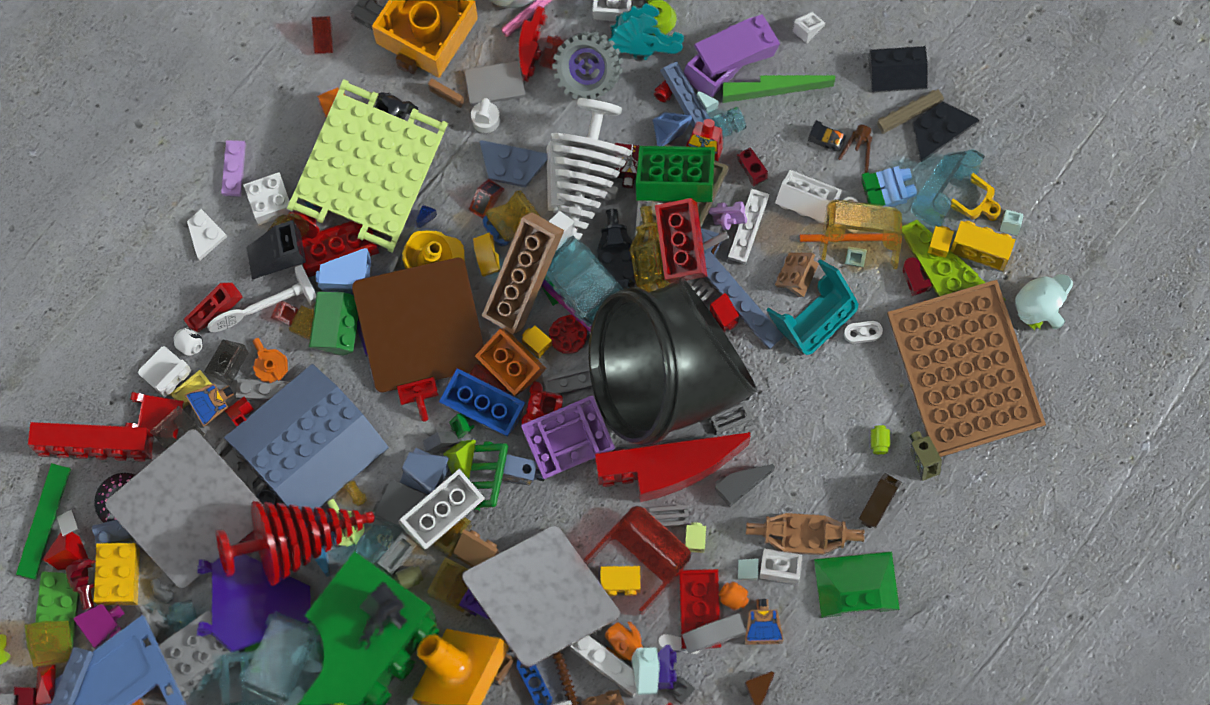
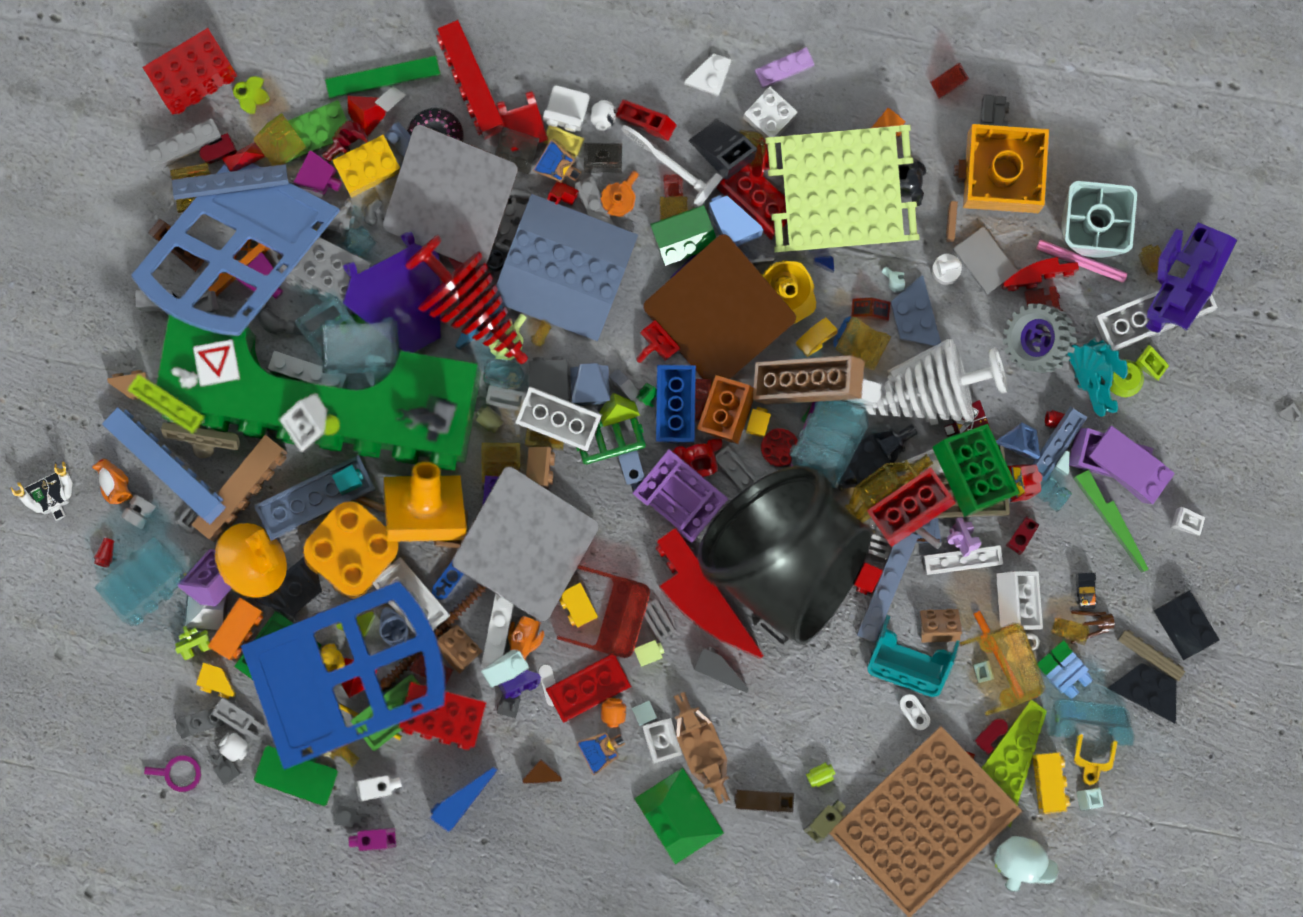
camera: 60 degrees right, 10 degrees up
(473, 165) = (896, 280): none -> light aqua piece
(714, 633) = (569, 711): light grey slope -> none
(855, 166) = (1070, 630): none -> clear yellow leg
(940, 241) = (1034, 742): yellow brick -> none

